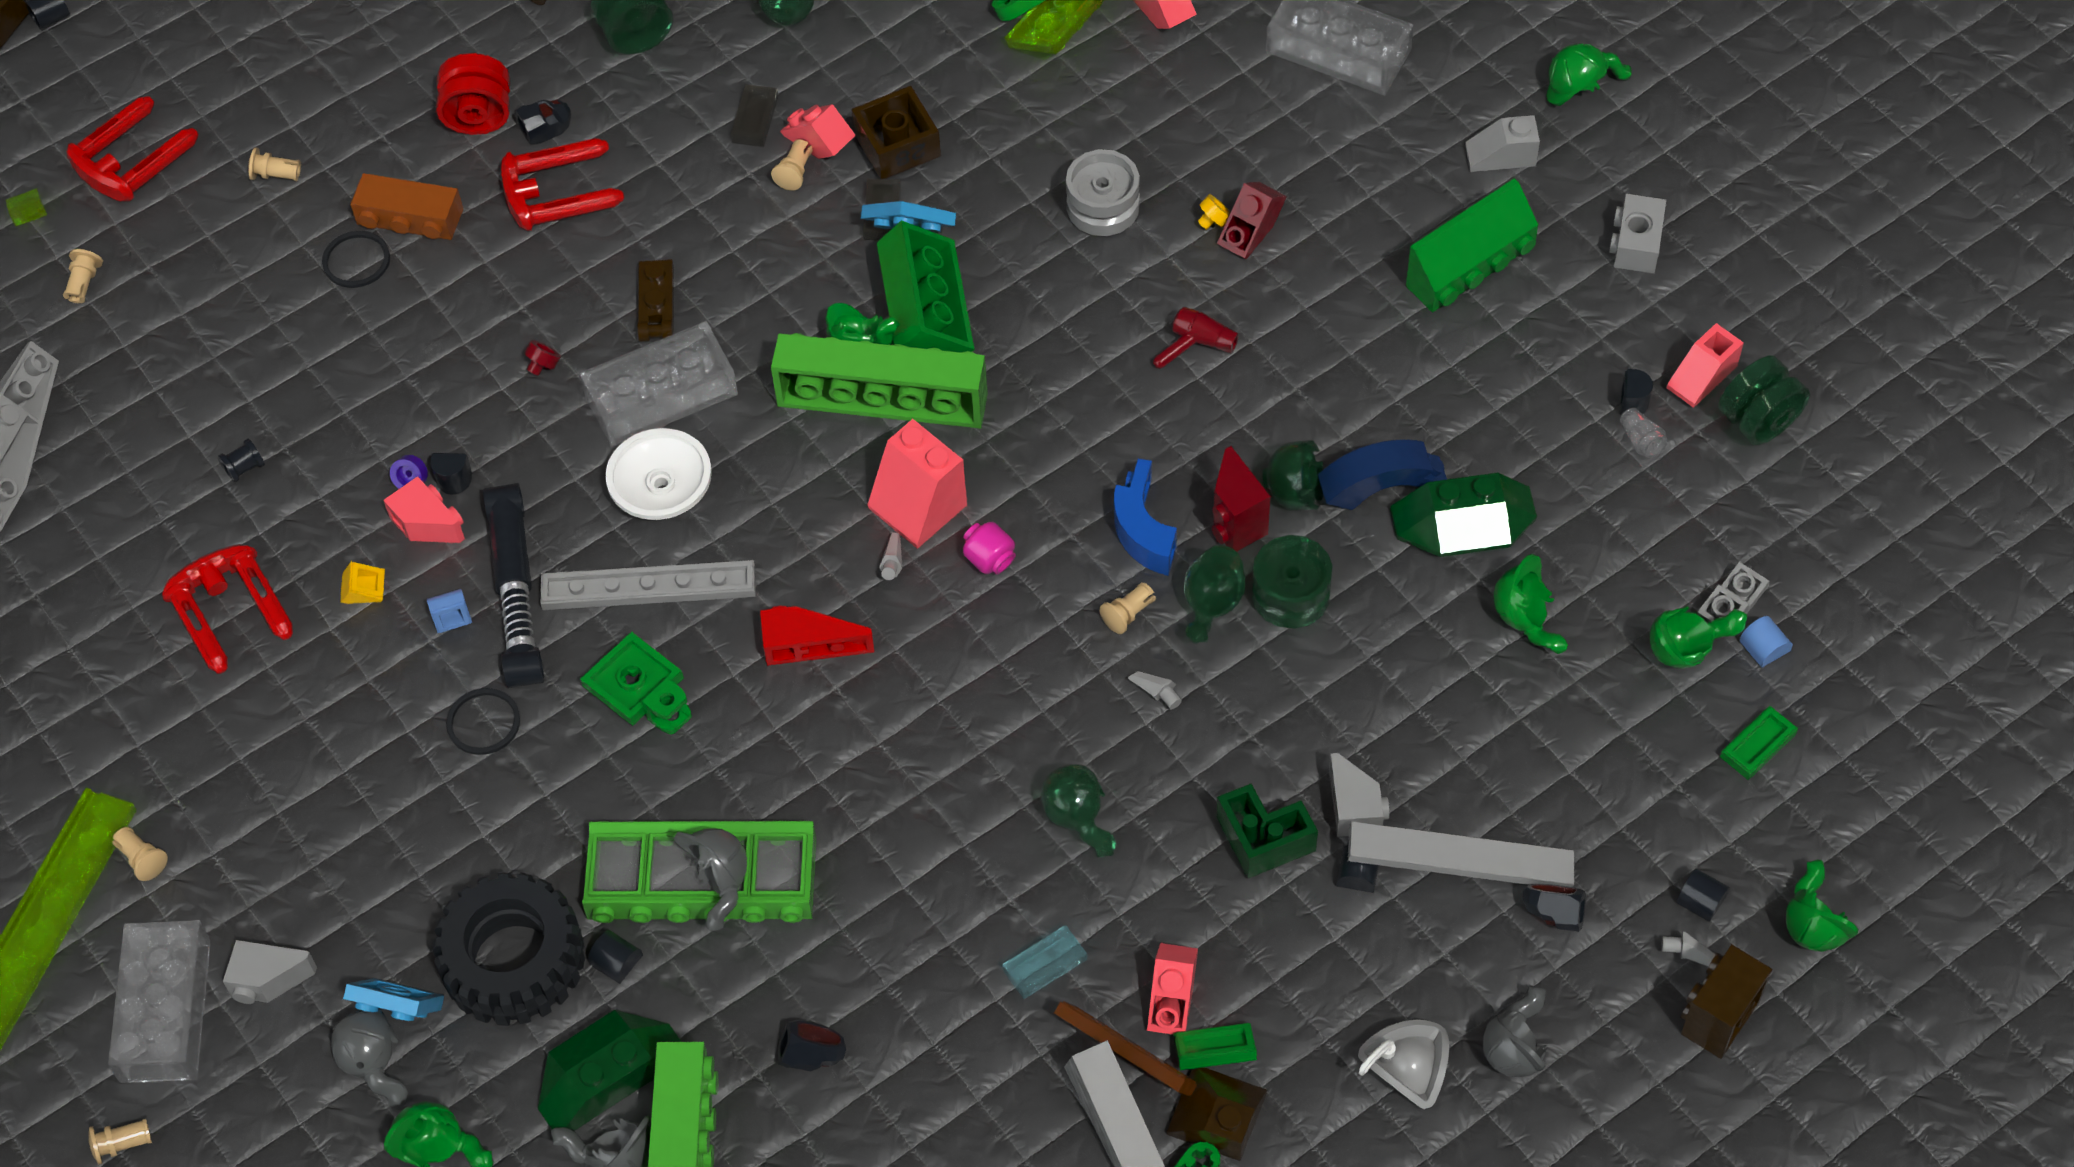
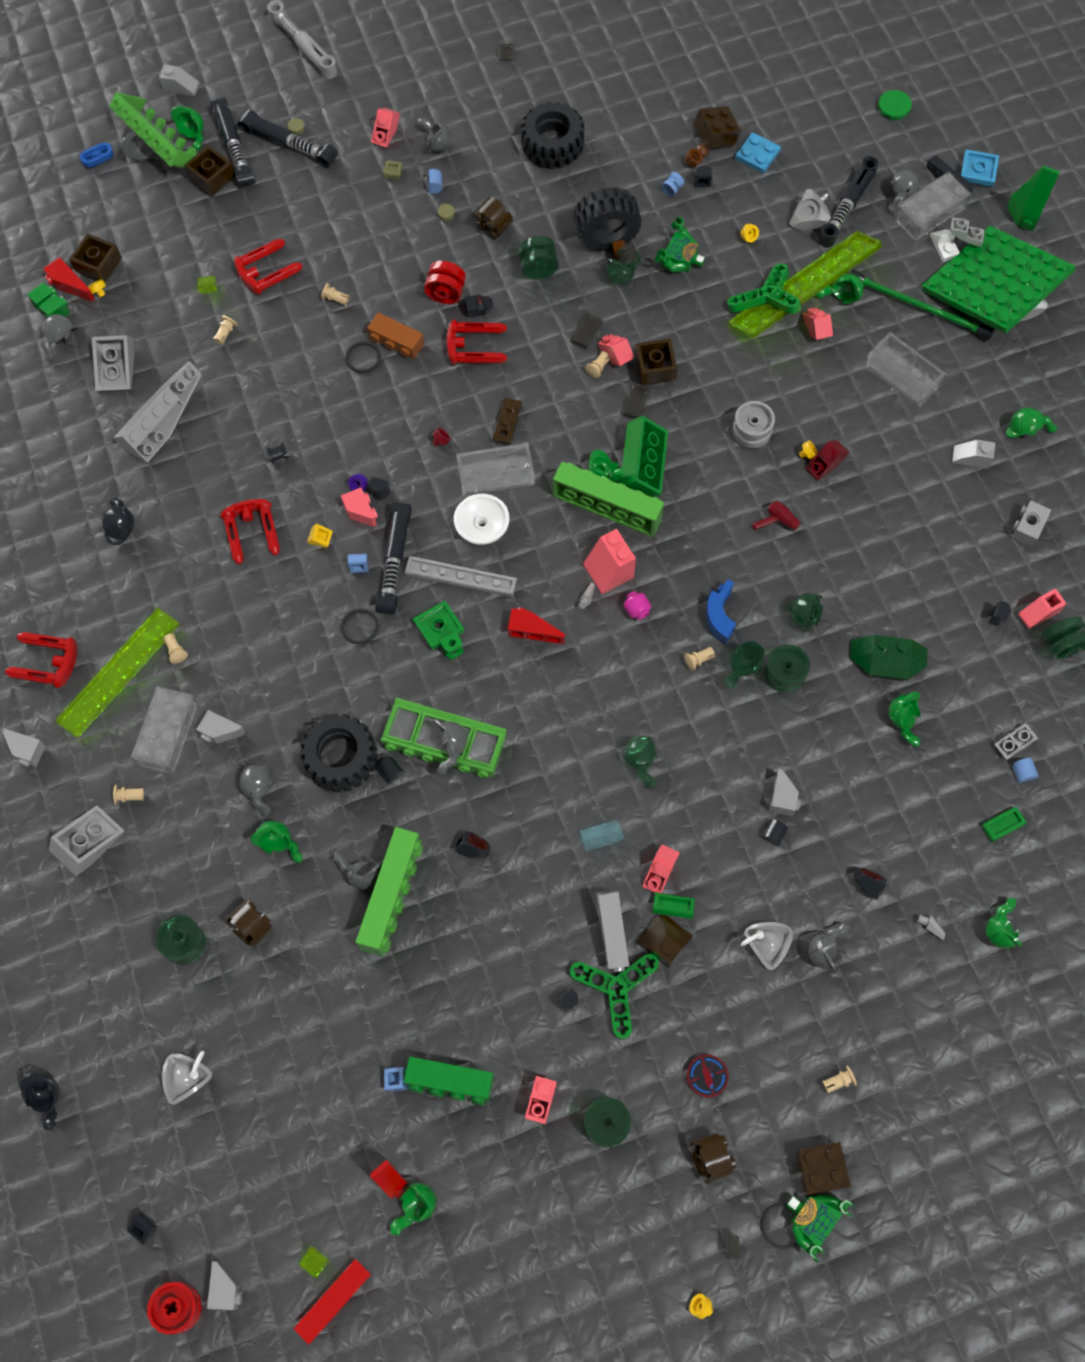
camera: 15 degrees right, 10 degrees up
(402, 1000) = (276, 762): dark azure plate -> none
(600, 1067) = (368, 826): dark green wedge -> none
(891, 213) = (651, 414): dark azure plate -> none
(1126, 1048) = (628, 895): reddish brown tile -> none
(1157, 687) = (701, 705): light grey bar -> none
(1239, 504) = (772, 619): dark red slope -> none
(1261, 838) = (730, 804): dark green brick -> none
(1378, 467) = (851, 619): dark blue arch -> none
(1460, 855) = (829, 842): light grey tile -> none
(1471, 246) = (939, 508): green slope -> none
(1644, 434) = (997, 637): clear cone -> none
(1685, 638) = (983, 758): green piece -> none
(1702, 894) = (948, 898): black brick -> none
(1724, 1000) = (943, 959): dark brown brick -> none

